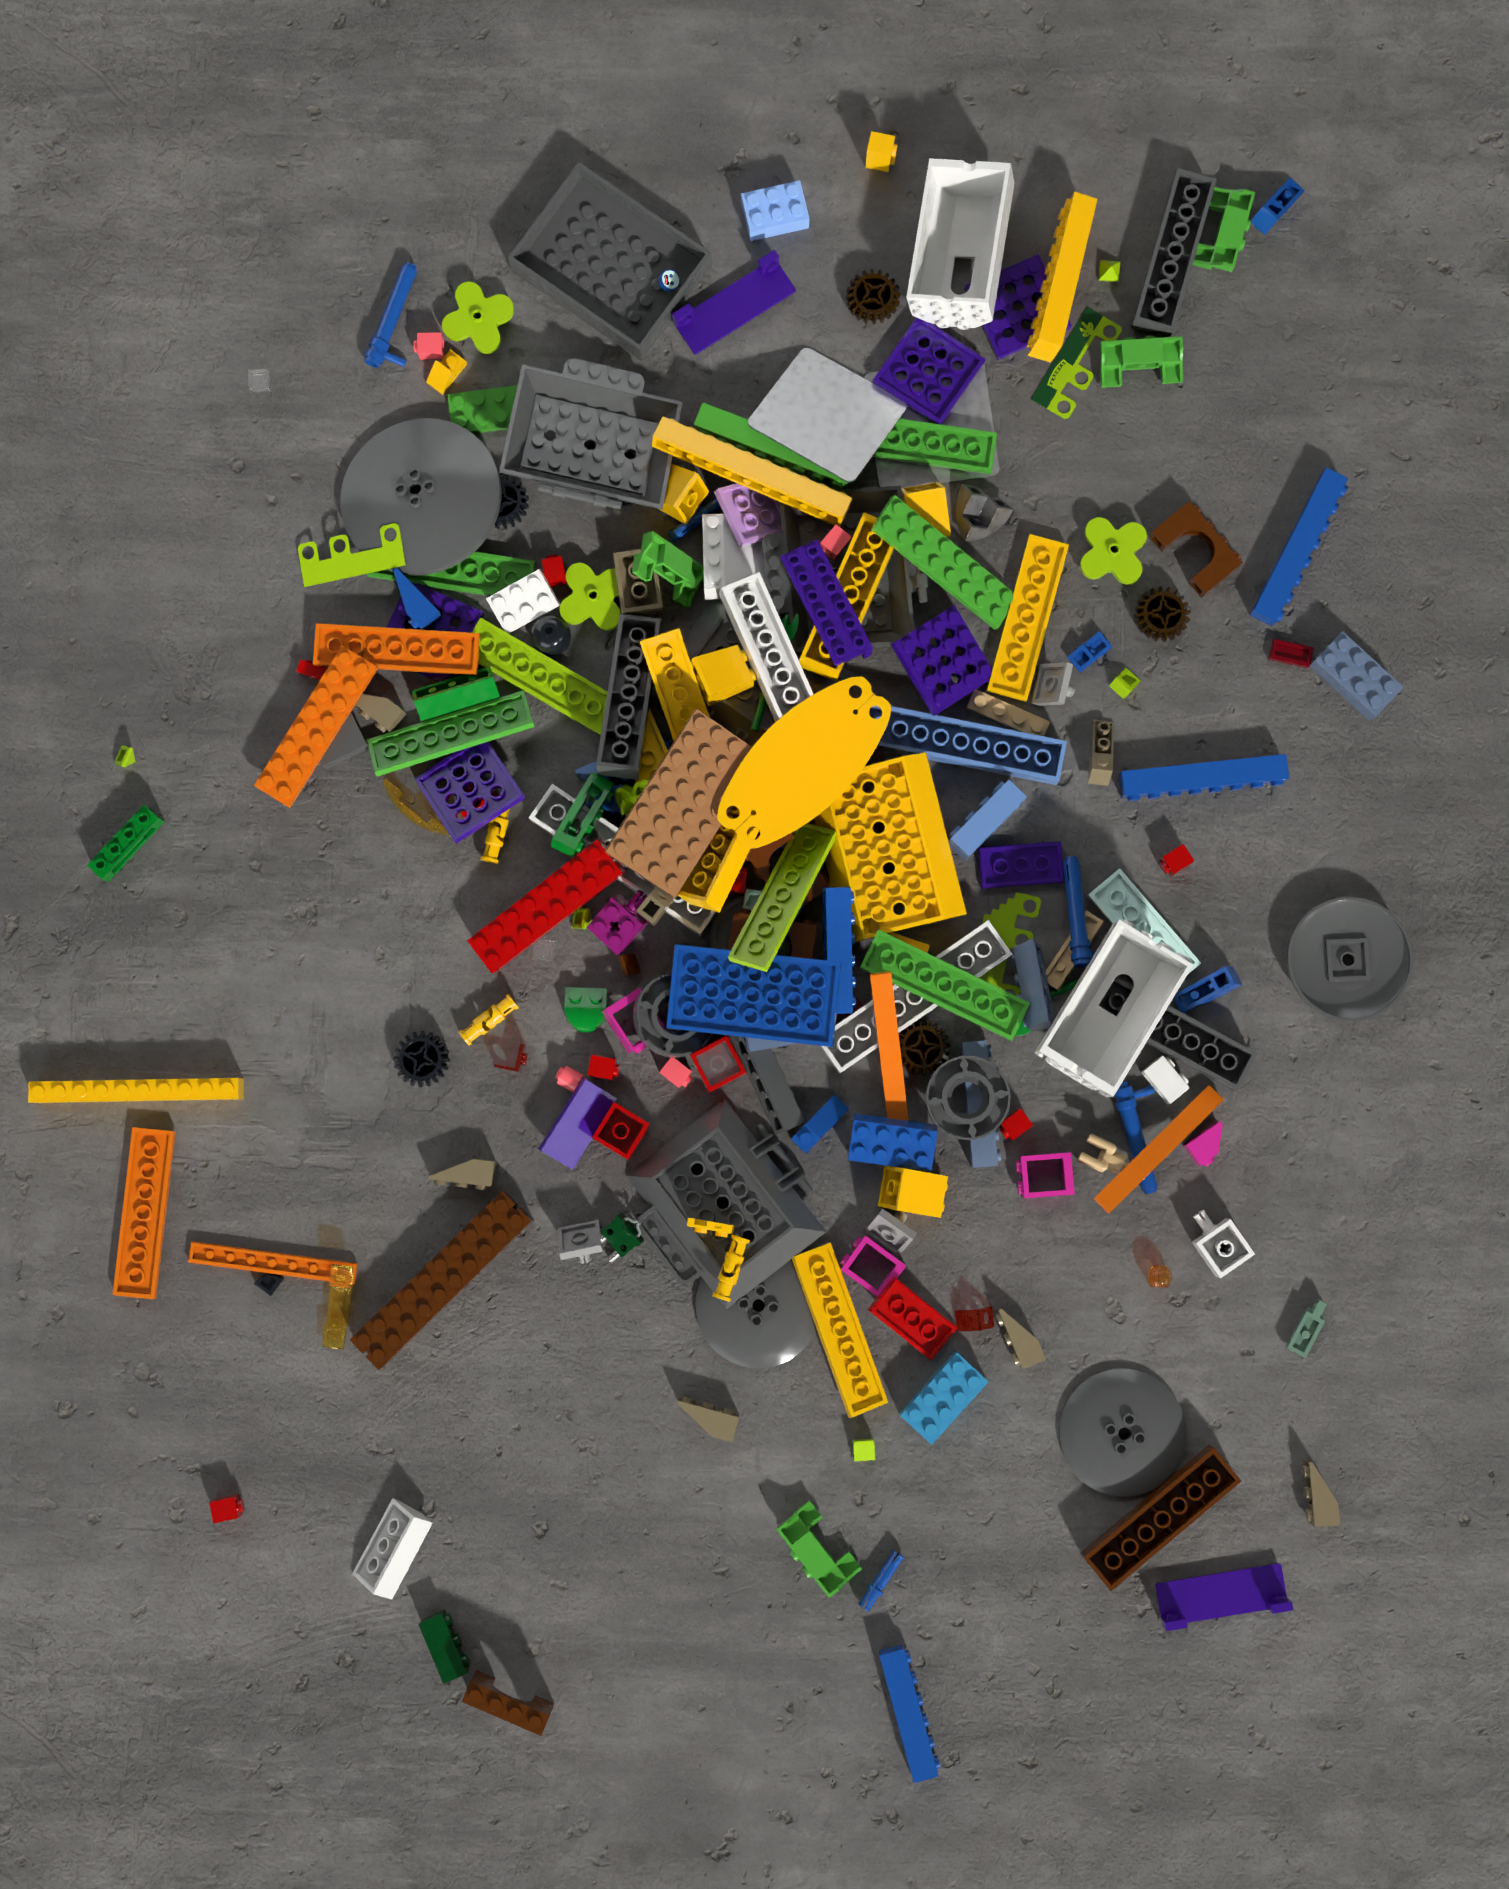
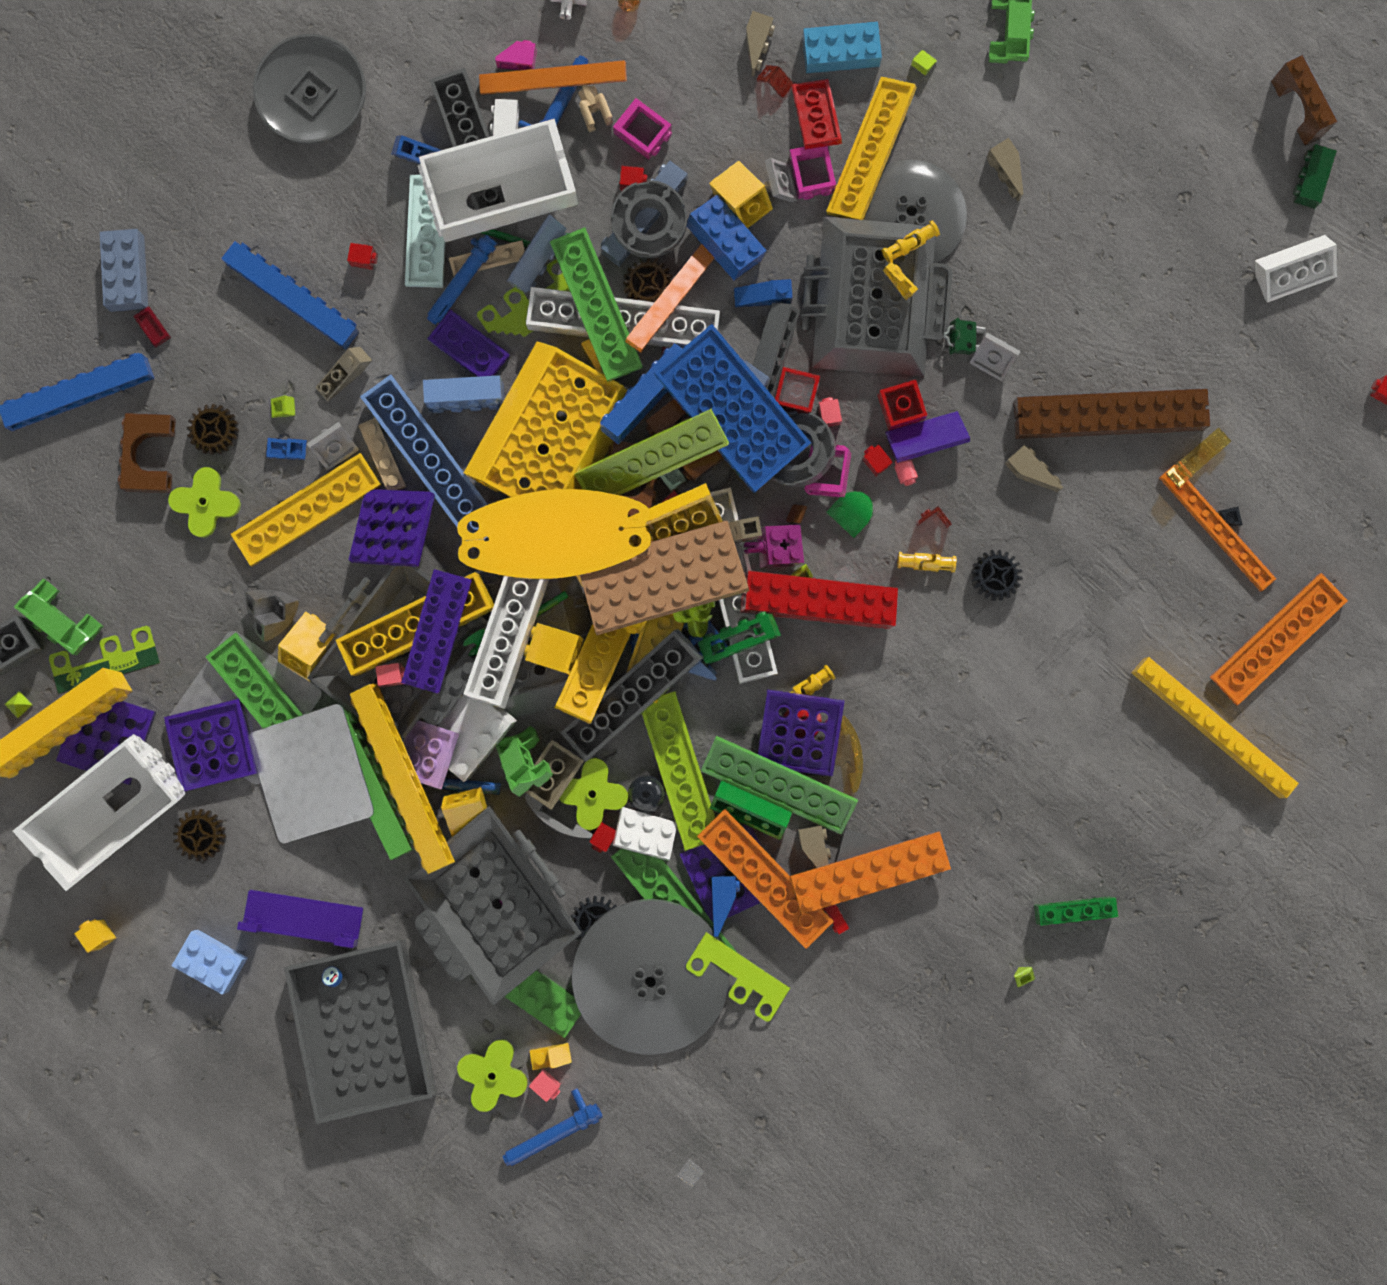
camera: 140 degrees left, 0 degrees up
(599, 548) = (578, 831): none -> light grey slope
(943, 562) = (328, 594): bright green plate -> none

